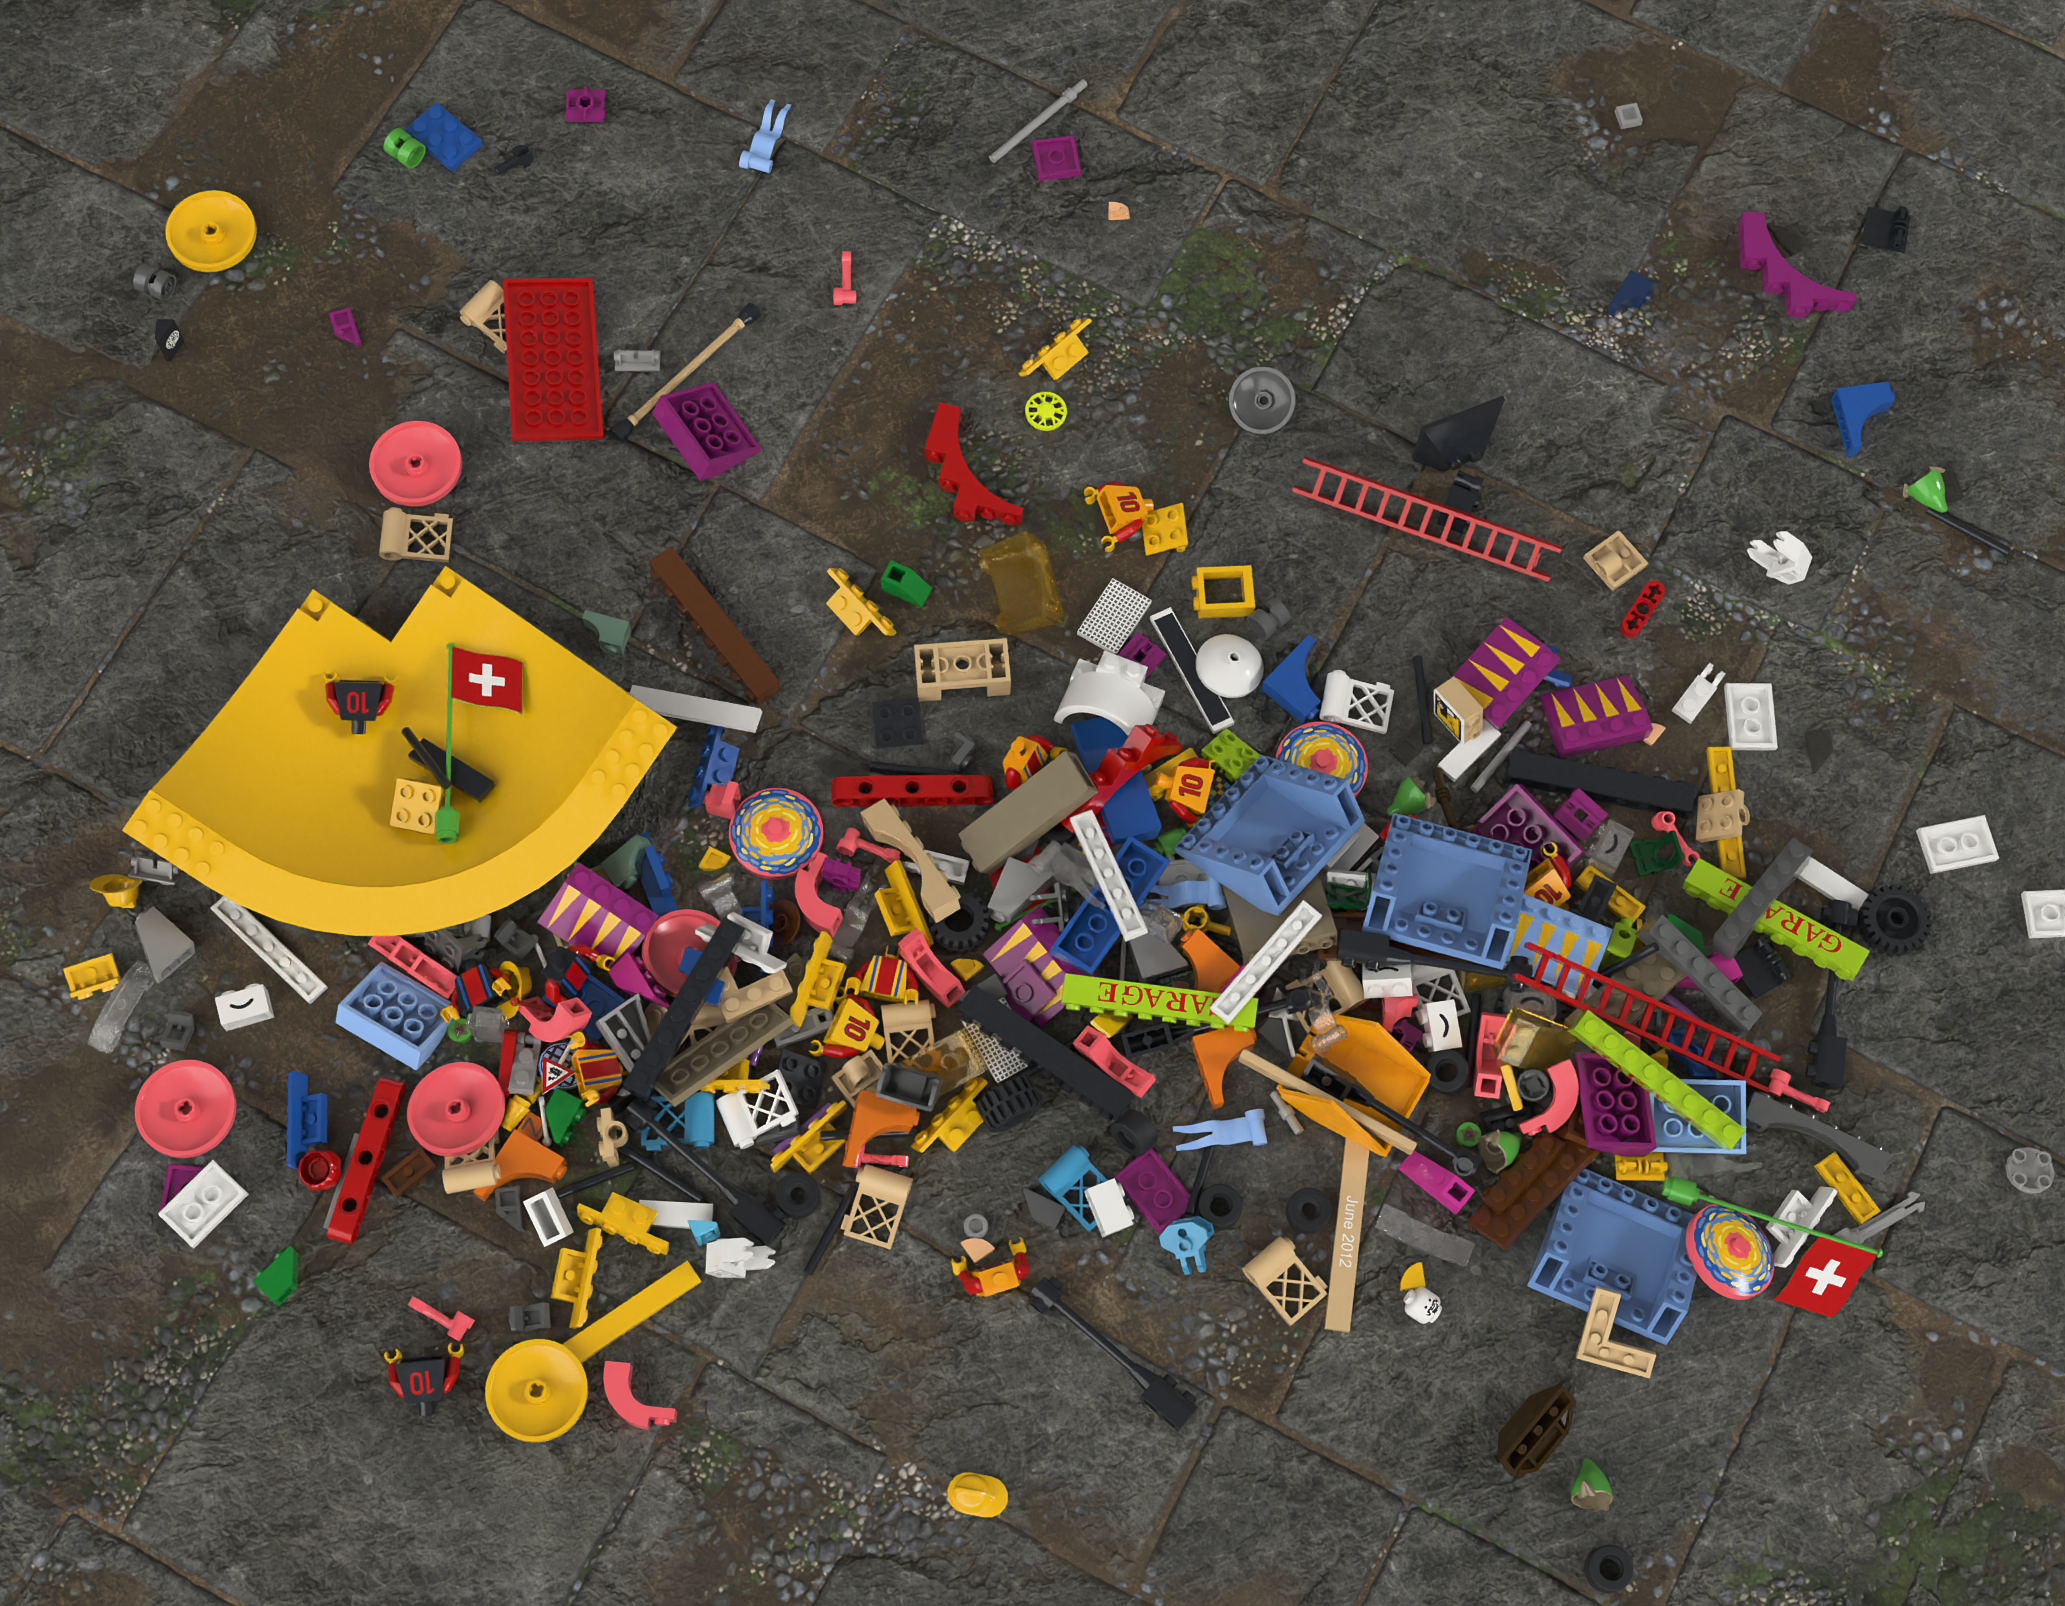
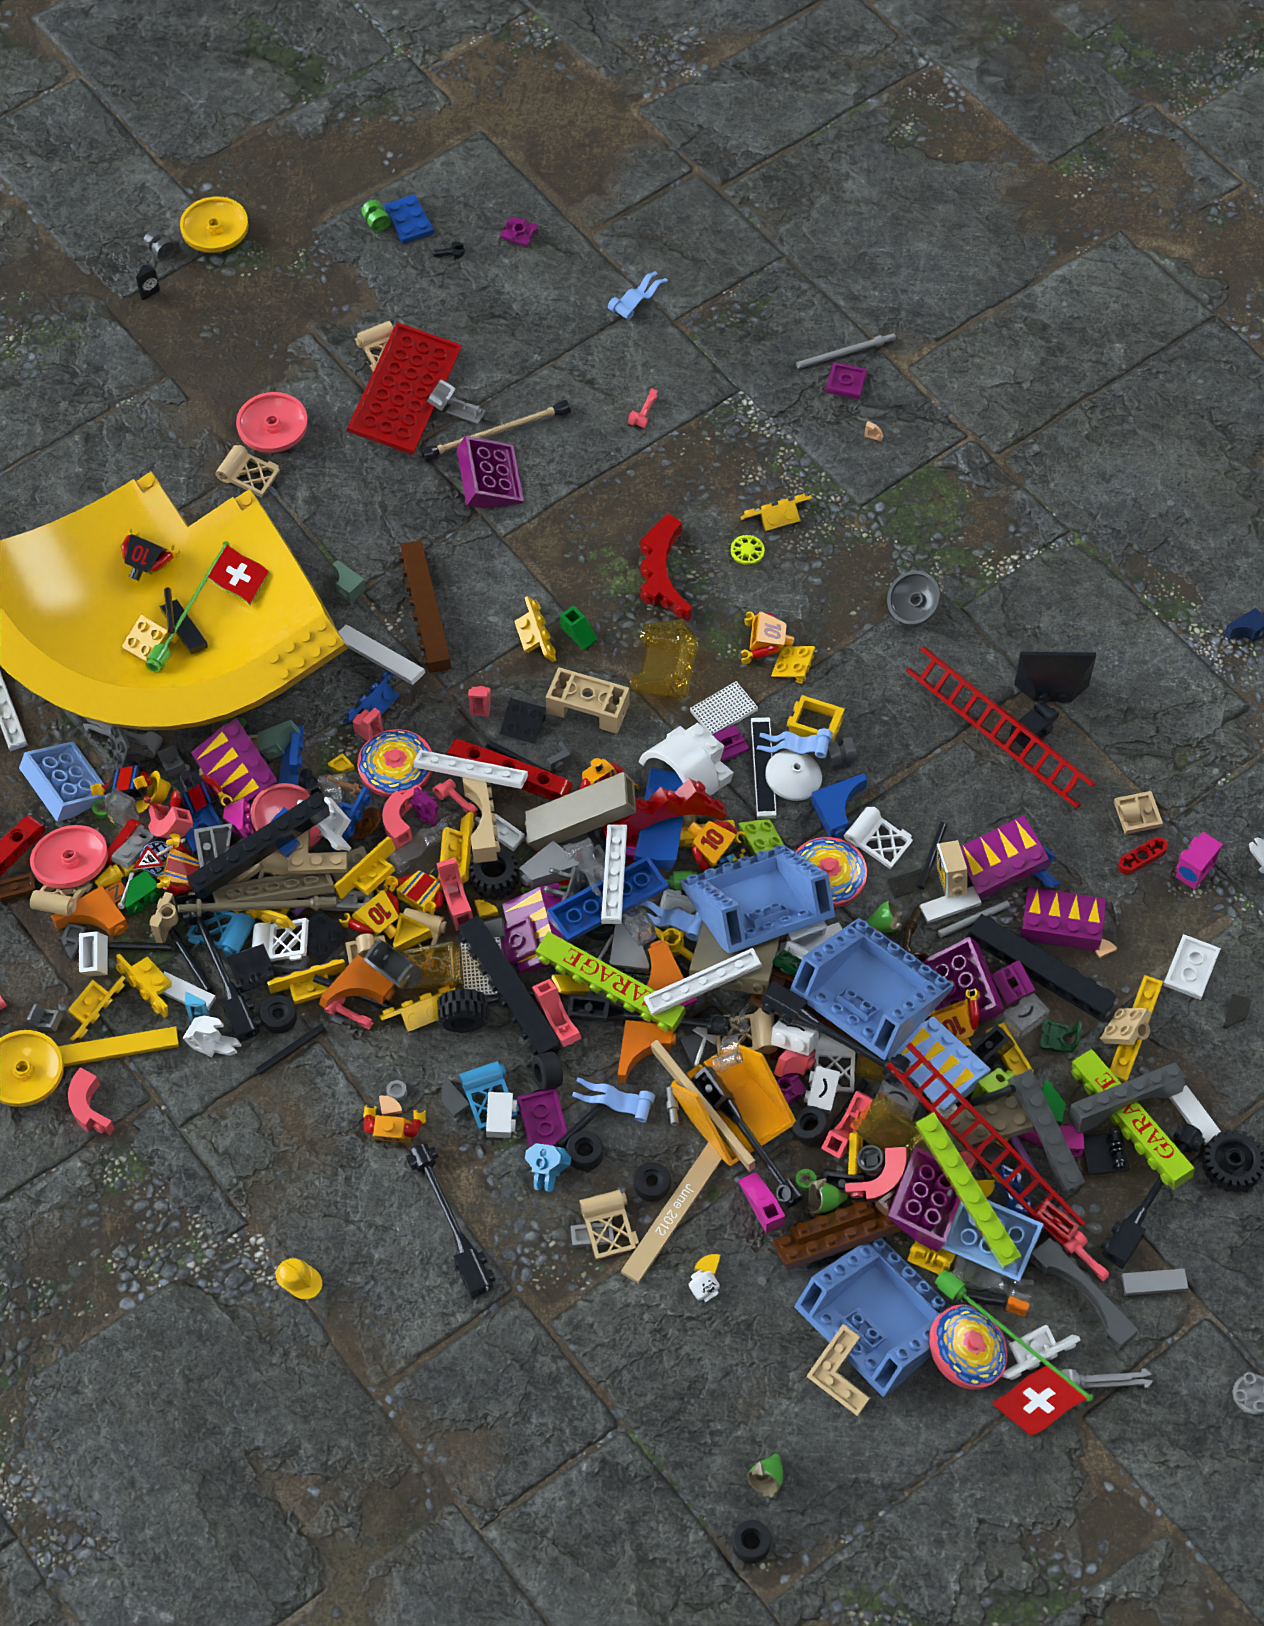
camera: 30 degrees right, 10 degrees down
(345, 326) = (273, 318): magenta tile -> none
(416, 963) = (94, 748): coral slope -> none
(603, 353) = (441, 395): none -> light grey panel
(701, 905) = (309, 782): none -> black pin
(742, 1154) = (251, 968): none -> black hinge
(745, 886) = (353, 789): none -> medium nougat piece
(777, 1046) = (314, 903): none -> dark tan bar
(837, 718) = (479, 701): none -> coral arch
(872, 809) = (470, 769): none -> white tile
(883, 1186) = (341, 1032): tan piece -> none
(902, 1036) = (409, 933): none -> yellow slope
(1223, 628) = (800, 745): none -> light blue flag
(1262, 1308) = (581, 1238): none -> light grey tile
(1423, 1237) = (730, 1237): clear slope -> none
(1535, 1430) = (745, 1414): dark brown wedge -> none
(1660, 825) = (1075, 1016): coral brick -> none
(1697, 695) = (1156, 934): white hinge -> none
(1707, 592) = (1198, 860): none -> dark pink brick
(1717, 1185) = (986, 1297): none -> black pin
(1736, 1067) = (1054, 1223): none -> red tile
(1754, 1181) = (1017, 1306): none -> orange tile
(1848, 1188) = (1093, 1344): yellow tile -> none
(1876, 1090) = (1154, 1282): none -> light grey tile

